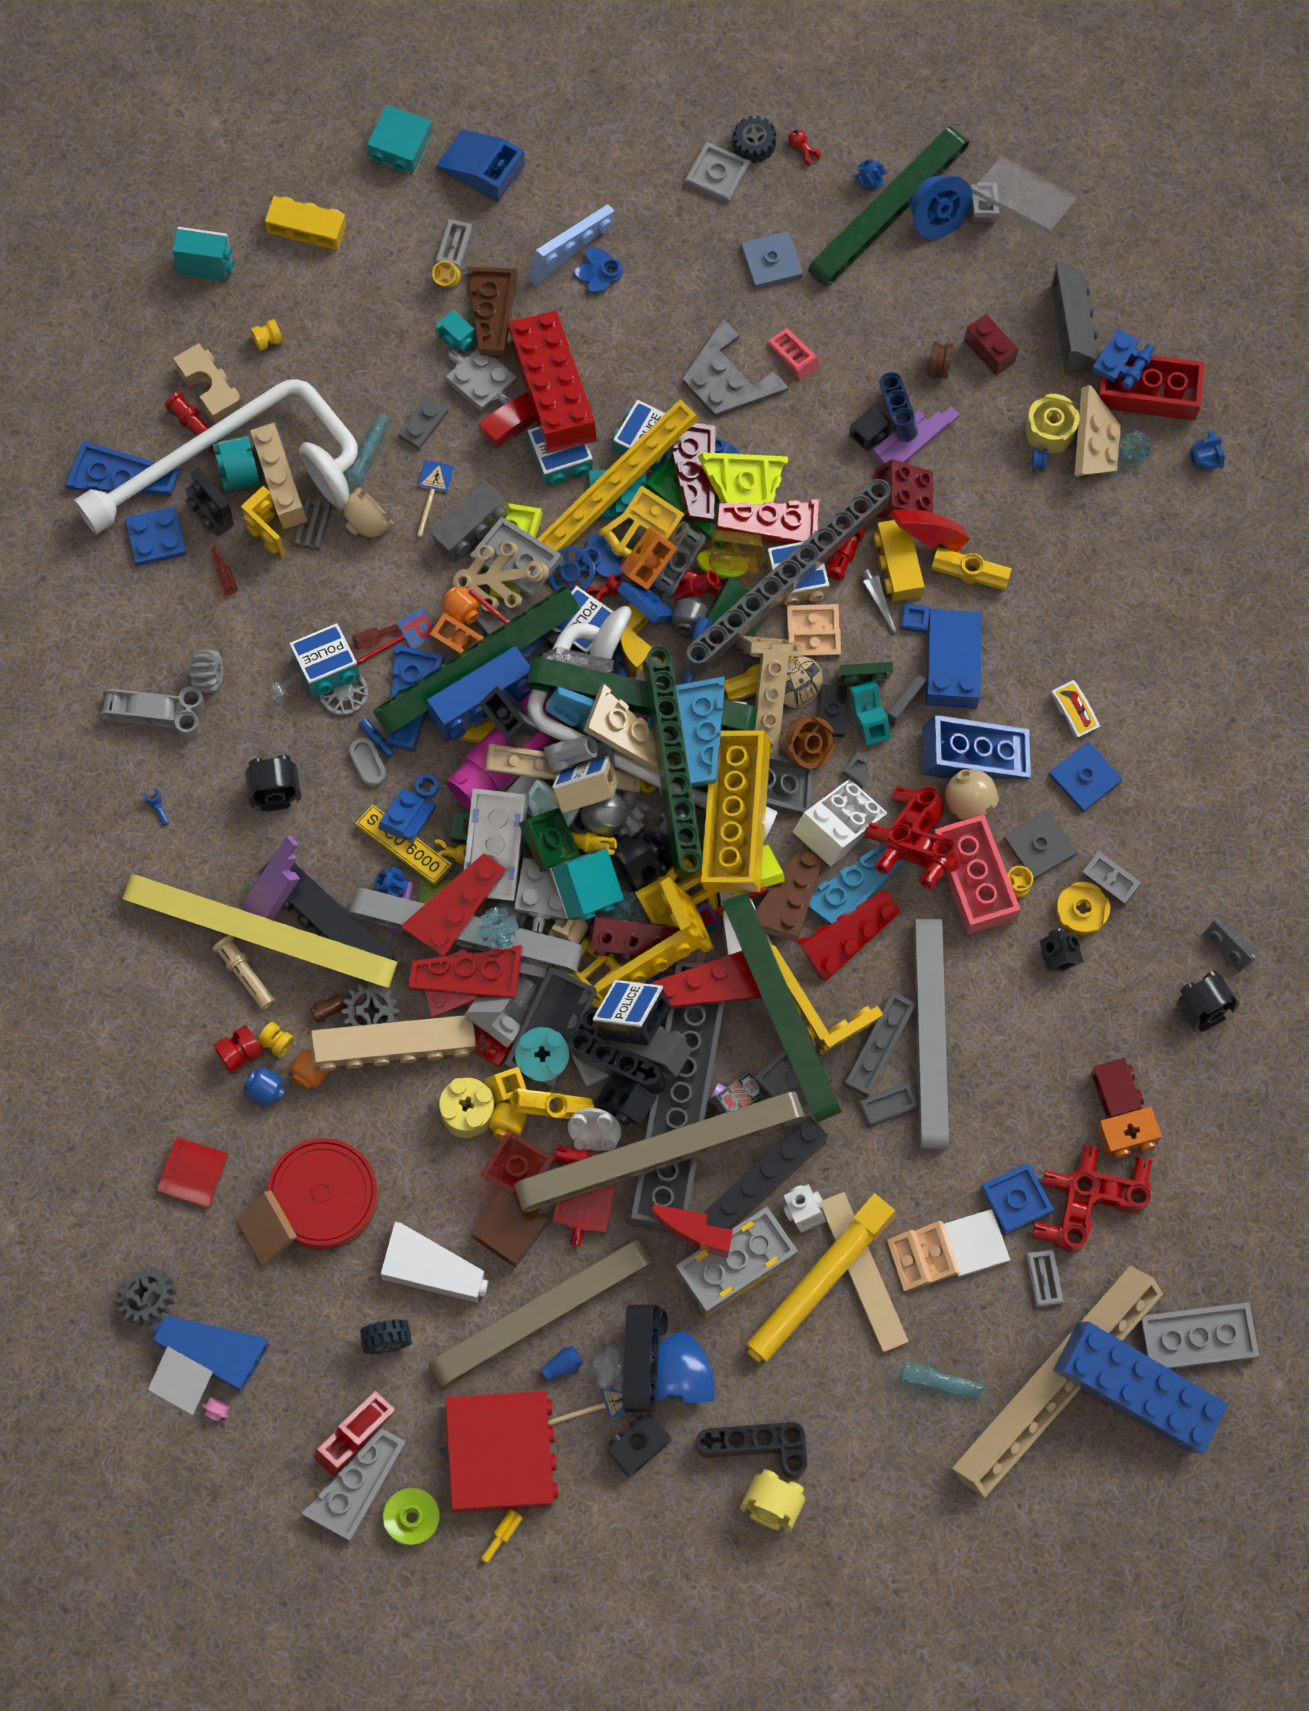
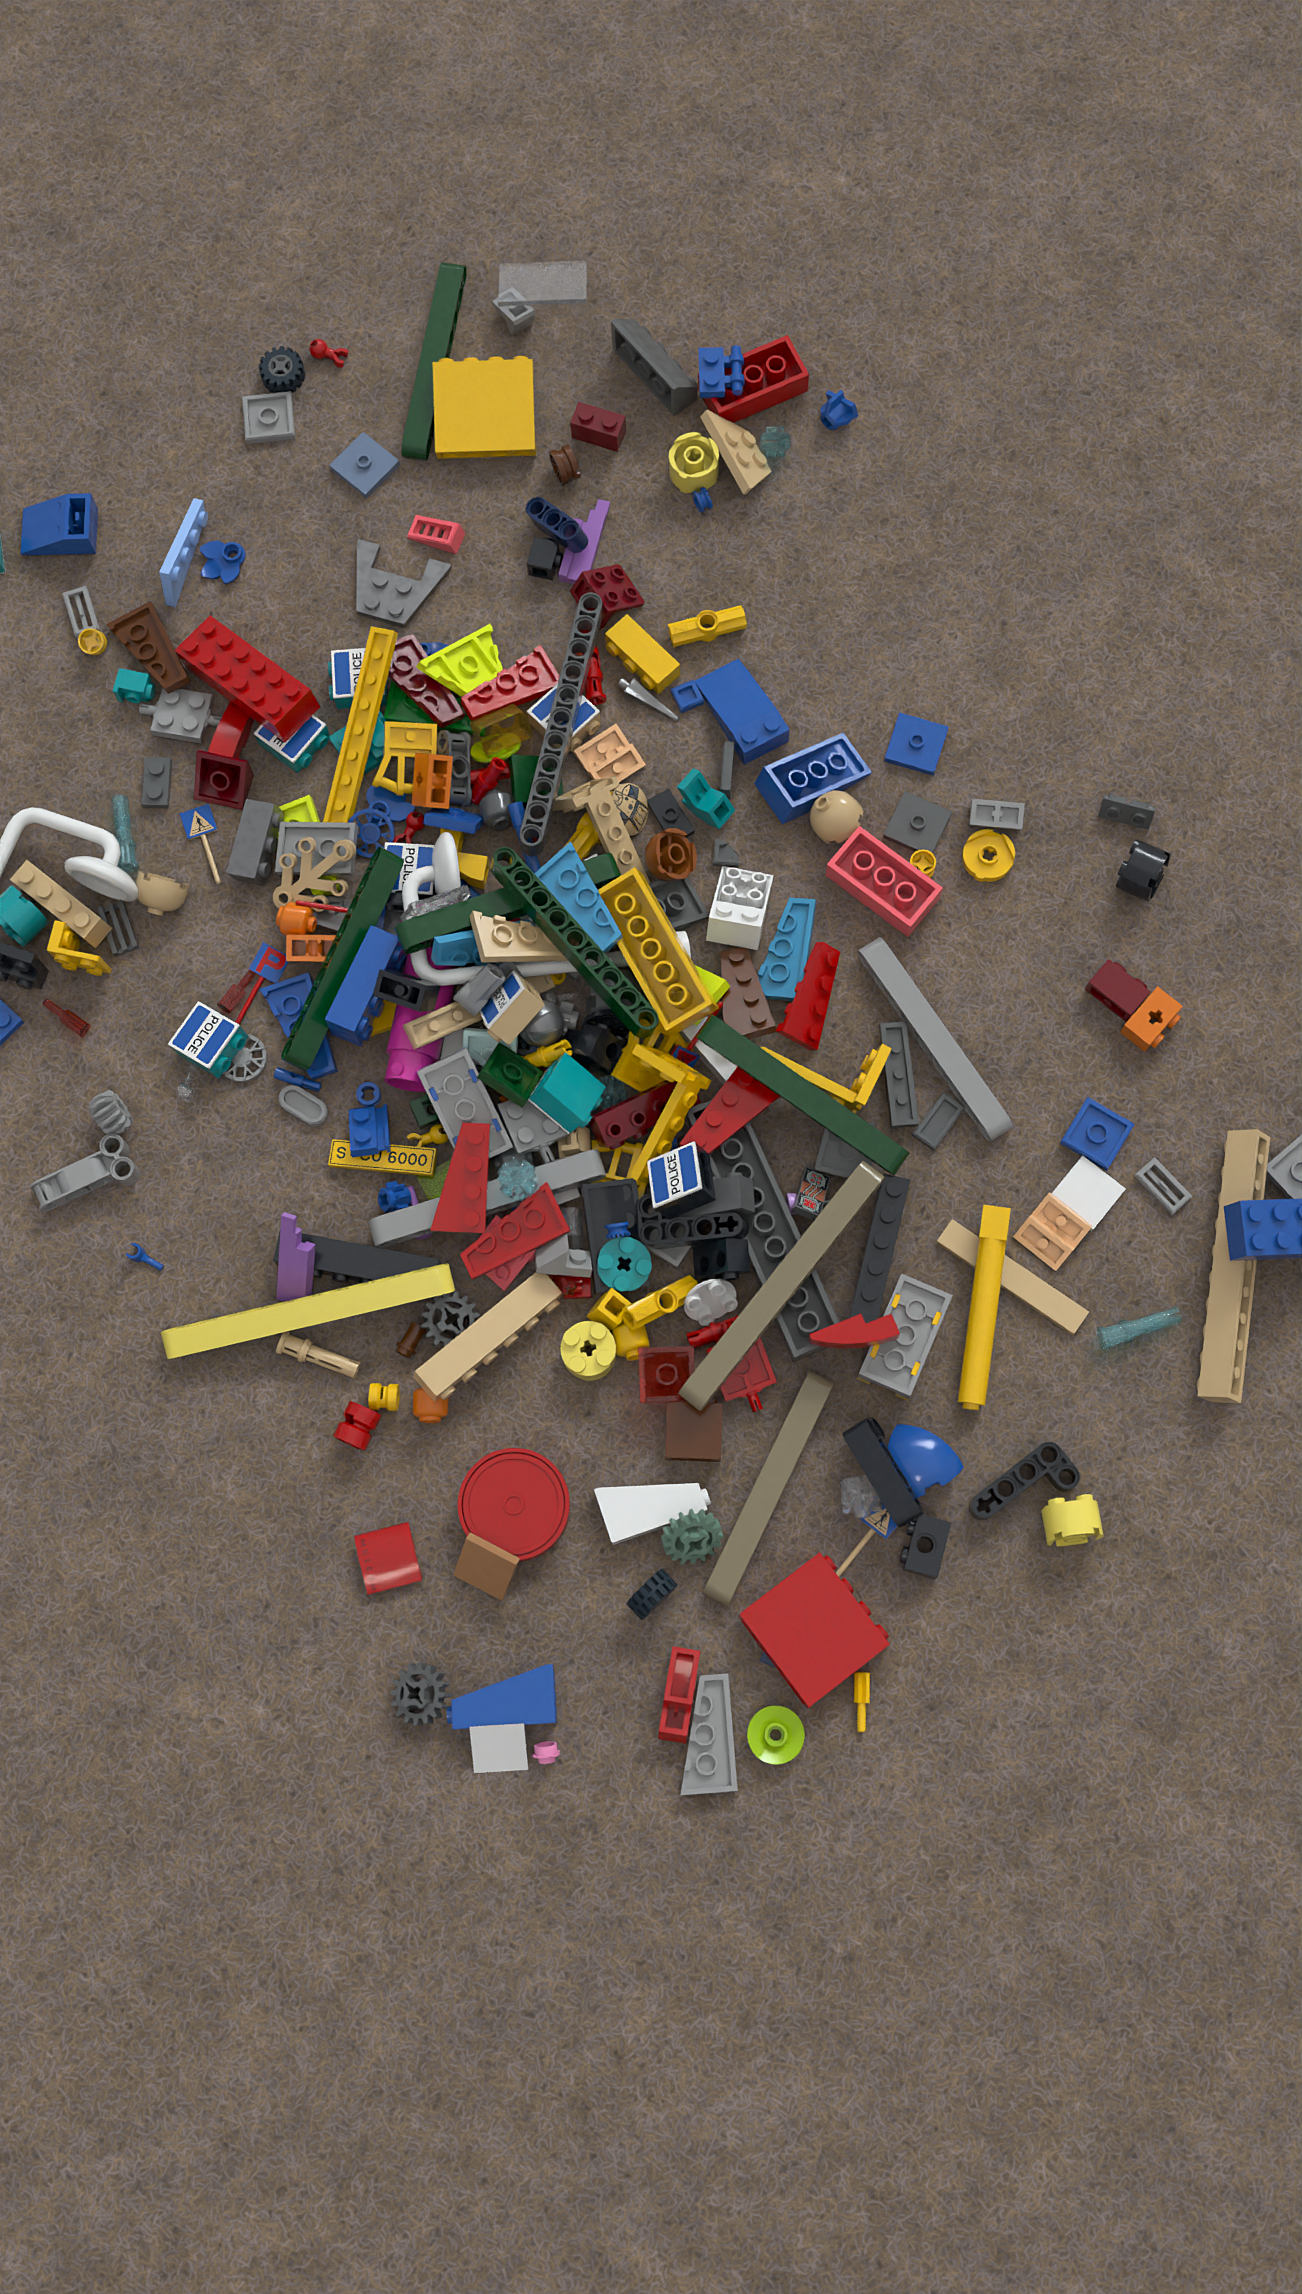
camera: 25 degrees left, 5 degrees up
(264, 1087) = (401, 1444): blue head -> none
(272, 783) = (233, 1175): black brick -> none
(449, 1311) = (692, 1536): none -> sand green gear
(477, 453) = (222, 779): none -> dark red slope
(554, 1021) = (616, 1229): none -> blue bush
(562, 1363) = (815, 1518): blue cone -> none
(804, 1207) = (937, 1257): white brick -> none
(854, 673) = (684, 764): dark green plate -> none
(870, 174) = (401, 342): blue gear -> none
(902, 271) = (484, 407): none -> yellow panel
(910, 839) = (811, 886): red pin -> none
(931, 528) = (654, 610): red slope -> none
(940, 205) = (478, 330): blue piece -> none
(1061, 950) = (995, 901): black brick -> none
(1075, 708) = (870, 690): slope -> none
(1103, 1190) = (1152, 1106): red pin -> none

